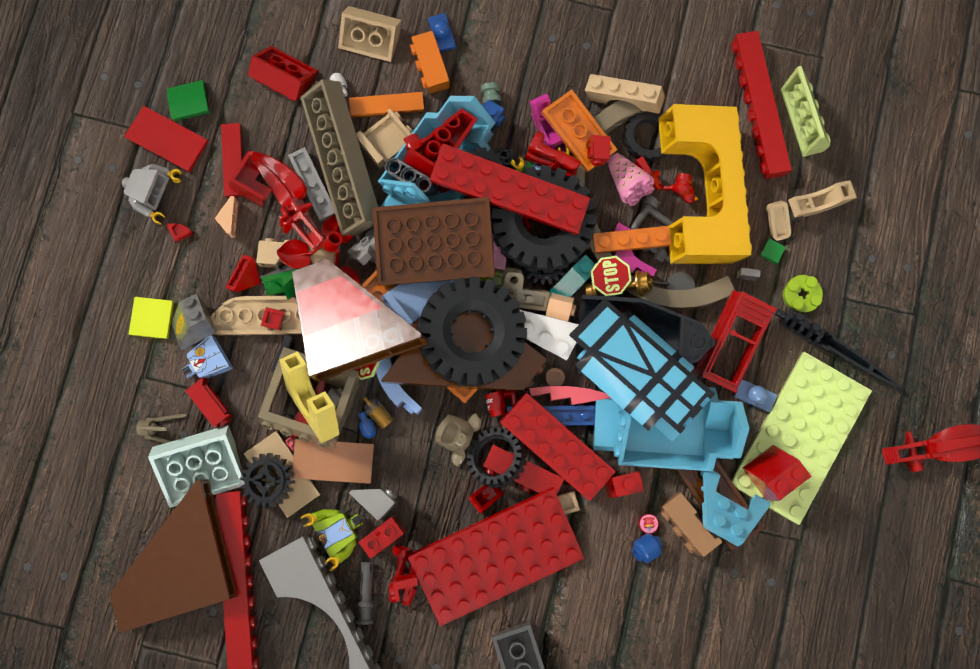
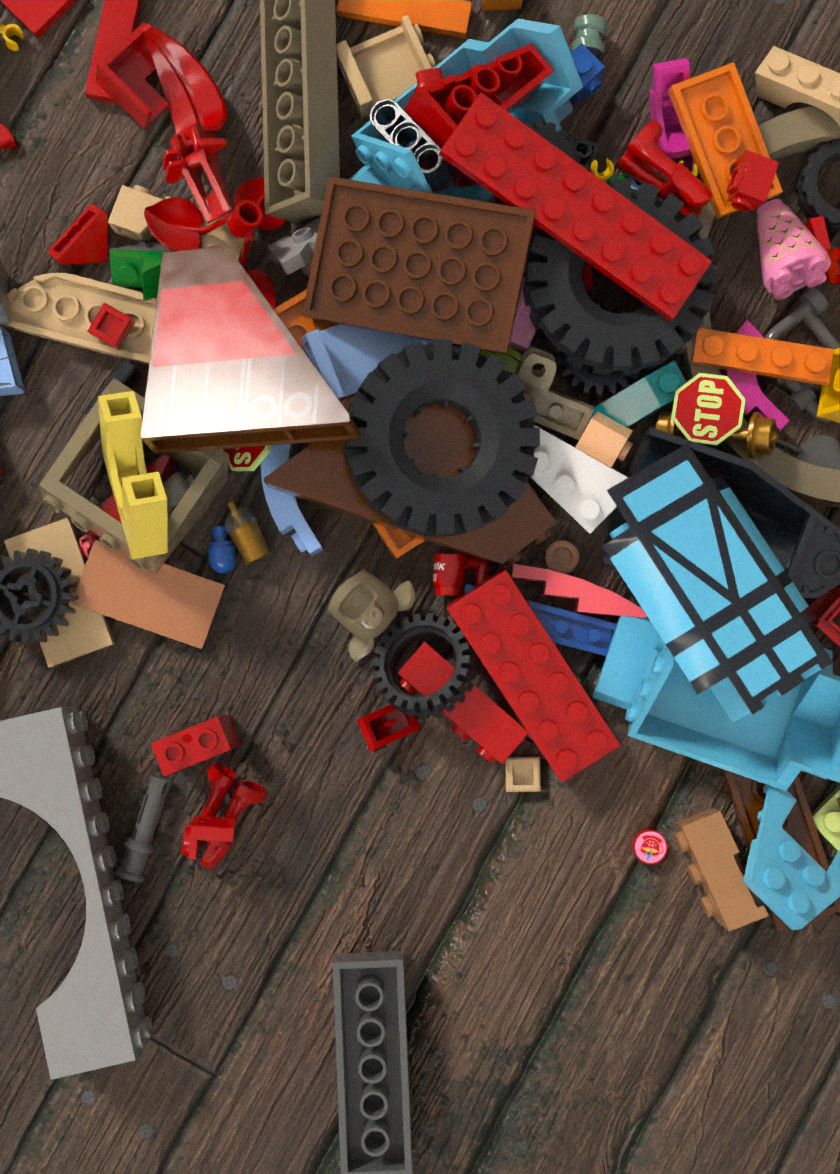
camera: 20 degrees right, 5 degrees up
(228, 216) = (84, 130): light nougat slope -> none
(315, 189) = (242, 122): light grey plate -> none
(335, 532) = (120, 715): torso -> none
(375, 501) = (201, 681): light grey slope -> none
(496, 556) = (378, 829): red plate -> none
(624, 484) = (628, 771): red torso -> none
(647, 548) = (636, 887): blue head -> none

